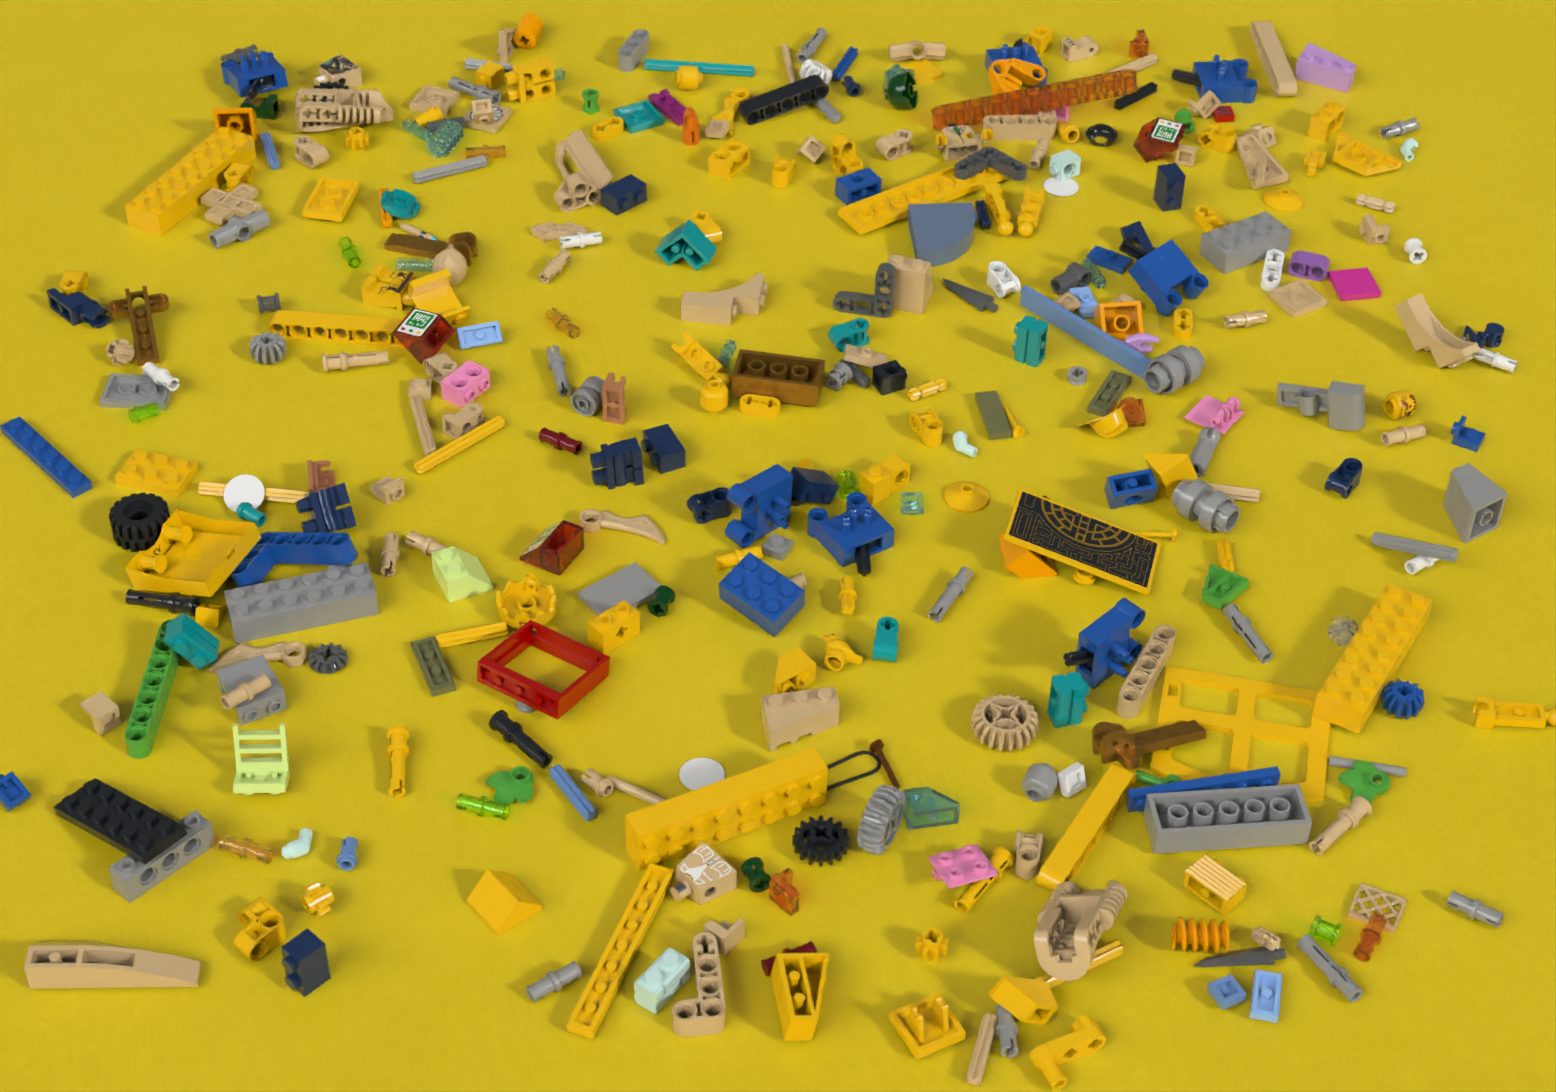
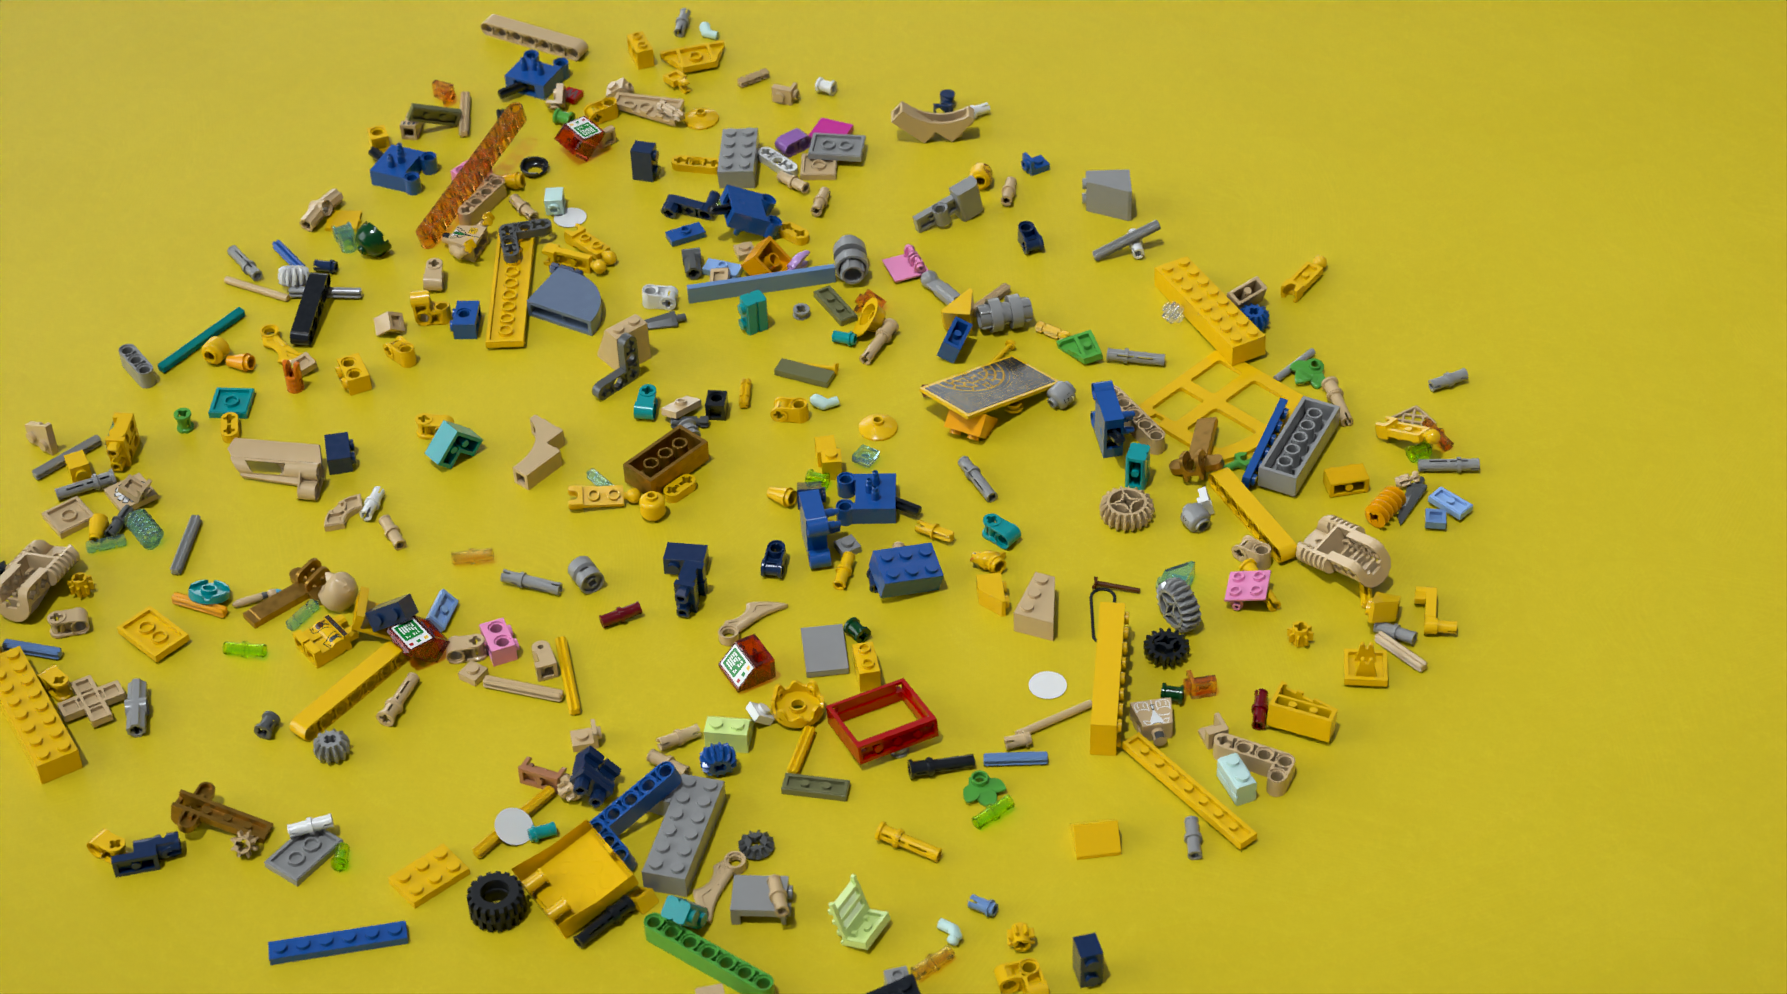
camera: 55 degrees left, 0 degrees up
(410, 580) = (718, 759): none -> blue gear
(432, 300) = (392, 612): none -> dark blue brick
(488, 151) = (186, 511): clear yellow pin -> none
(495, 581) = (760, 713): none -> white plate
(528, 31) = (31, 410): light orange piece -> none
(614, 400) = (610, 559): nougat hinge -> none
(668, 106) = (240, 378): magenta plate -> none
(690, 98) = (241, 361): none -> light orange cone
(1012, 75) = (426, 174): light orange connector -> none
(1068, 421) = (844, 337): none -> teal pin
(1093, 441) = (883, 336): none -> tan pin
(1095, 48) = (434, 114): none -> olive tile
(1097, 278) = (706, 250): clear light blue axle -> none
(1132, 593) = (1061, 395): none -> light grey head
(1253, 290) = (793, 182): none -> tan pin
(1325, 69) = (577, 18): lavender wedge -> none
(1332, 294) = (837, 147): none -> light grey tile
(1336, 902) = (1406, 431): none -> yellow plate
(1428, 674) = (1247, 293): none -> tan brick

